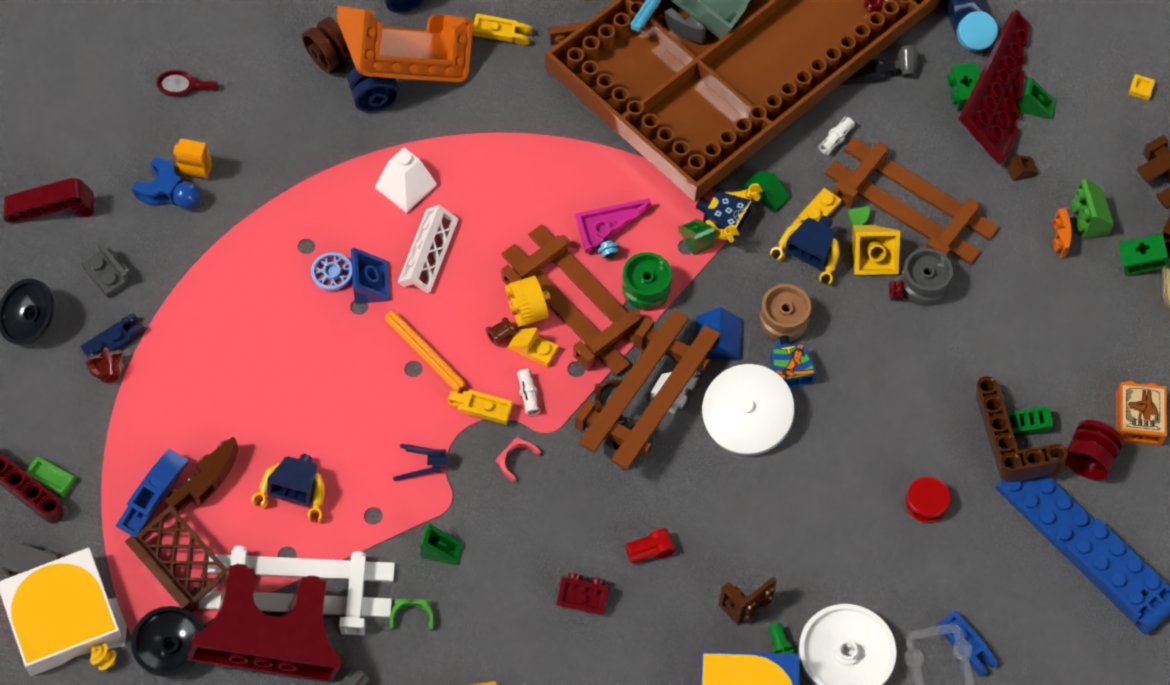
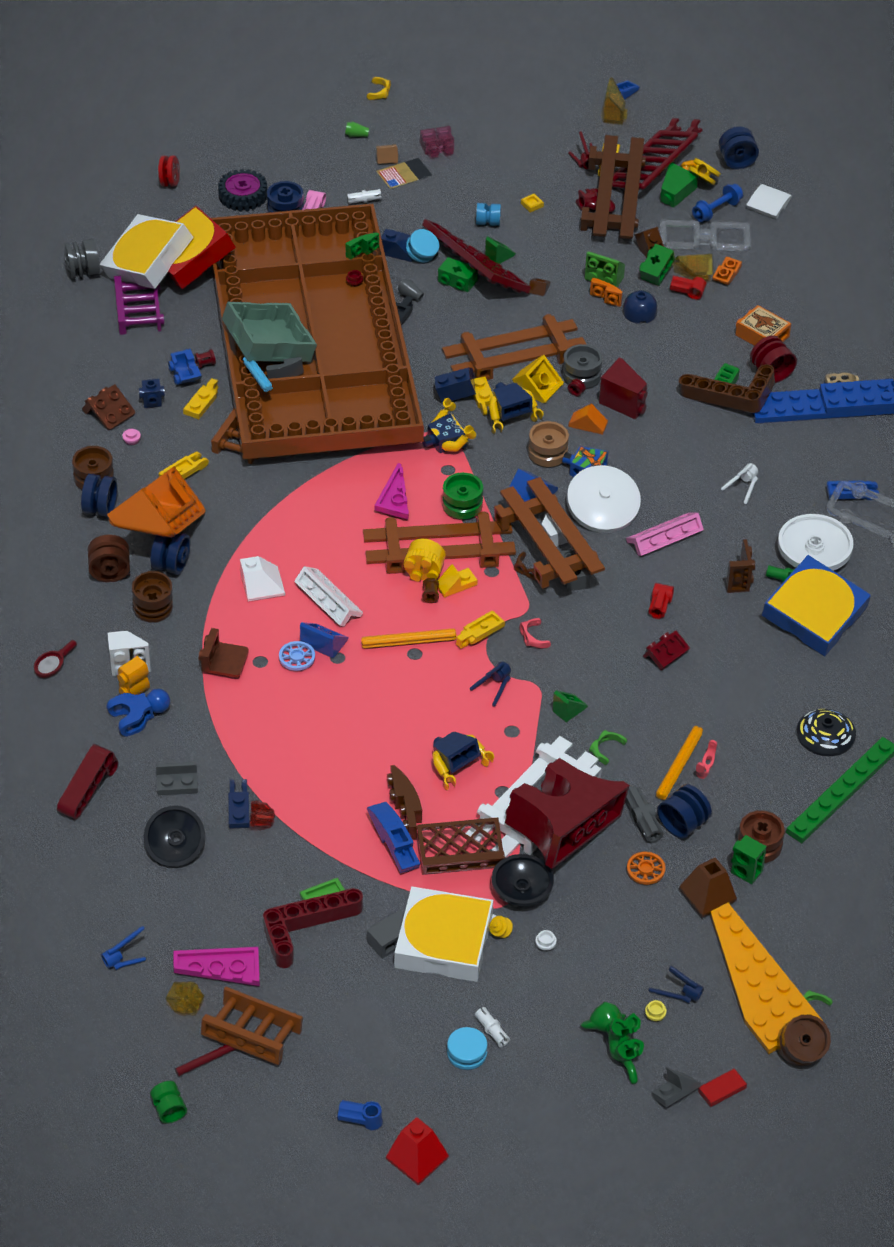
camera: 55 degrees left, 15 degrees down
(218, 132) = (125, 647): none -> white slope
(280, 210) = (222, 657): none -> copper bracket
(307, 108) = (152, 596): none -> reddish brown wheel
(528, 392) = (499, 604): white pin -> none
(608, 249) = (417, 504): medium azure plate -> none
(697, 235) = (447, 456): green slope -> none
(752, 496) = (666, 533): none -> bright pink fence
(773, 192) = (434, 406): green slope -> none
(803, 179) = (455, 384): none -> dark blue slope
(836, 135) = (433, 353): white pin -> none
(858, 216) = (505, 376): bright green tile -> none
(859, 330) = (589, 419): none -> orange slope
(904, 524) = (747, 474): none -> white plant
(918, 333) = (623, 390): none -> dark red slope
(927, 499) = (739, 453): red head -> none
(1070, 278) = (640, 307): none -> dark blue cylinder
(1079, 59) = (488, 214): none -> dark azure wheel
(1119, 523) = (851, 377): none -> tan cap
(1145, 308) = (692, 287): none -> red piece

